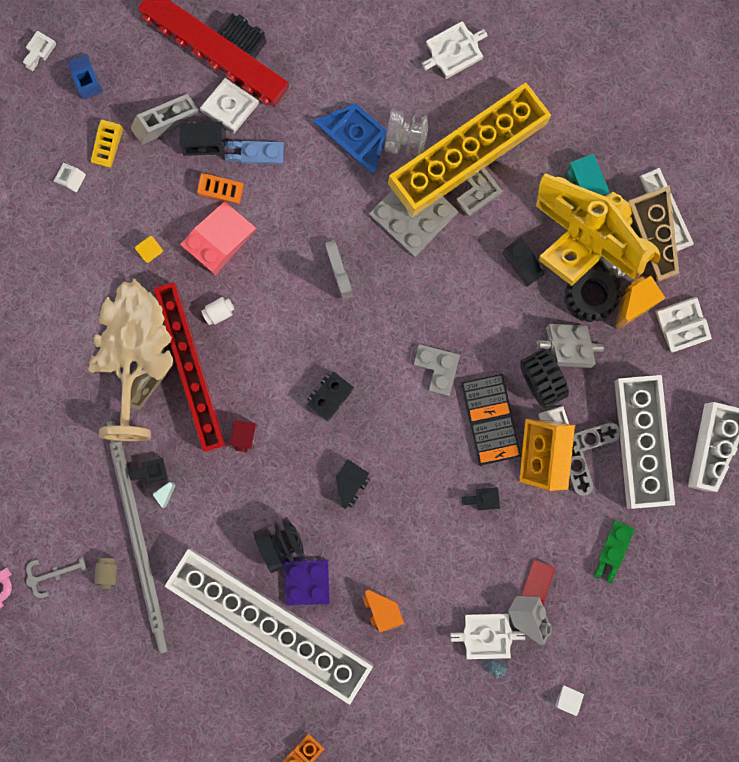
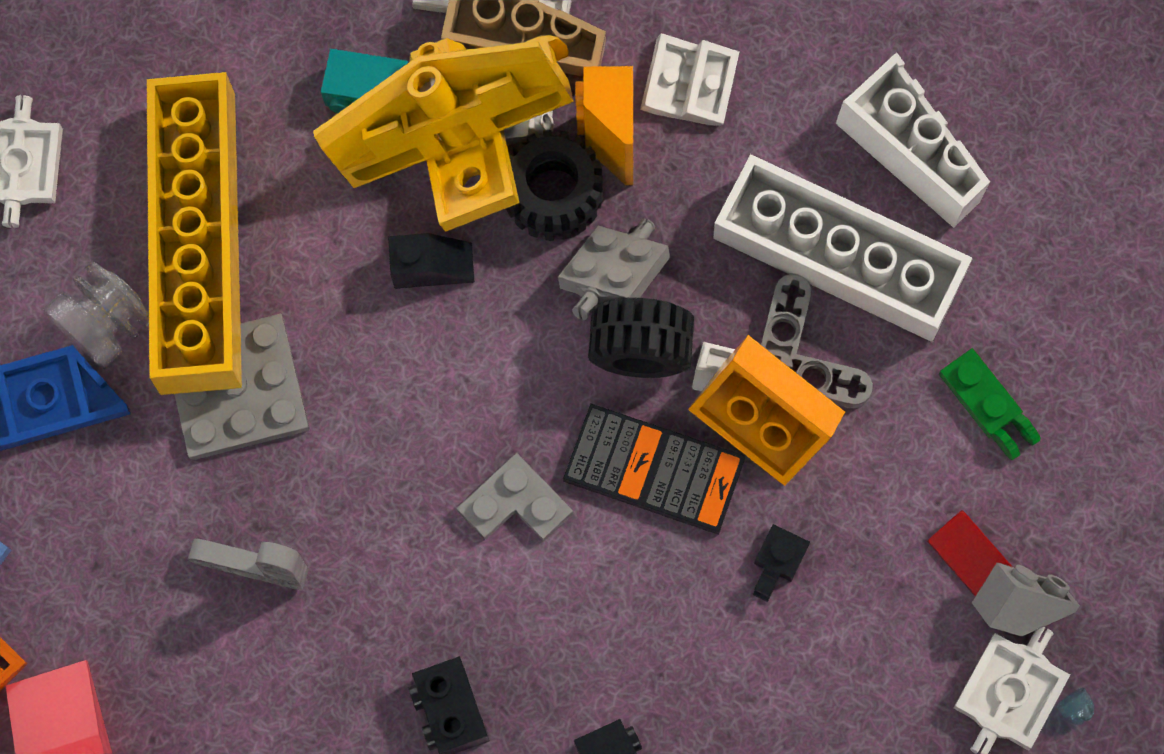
camera: 60 degrees left, 10 degrees down
(482, 192) = (275, 257): light grey plate -> none

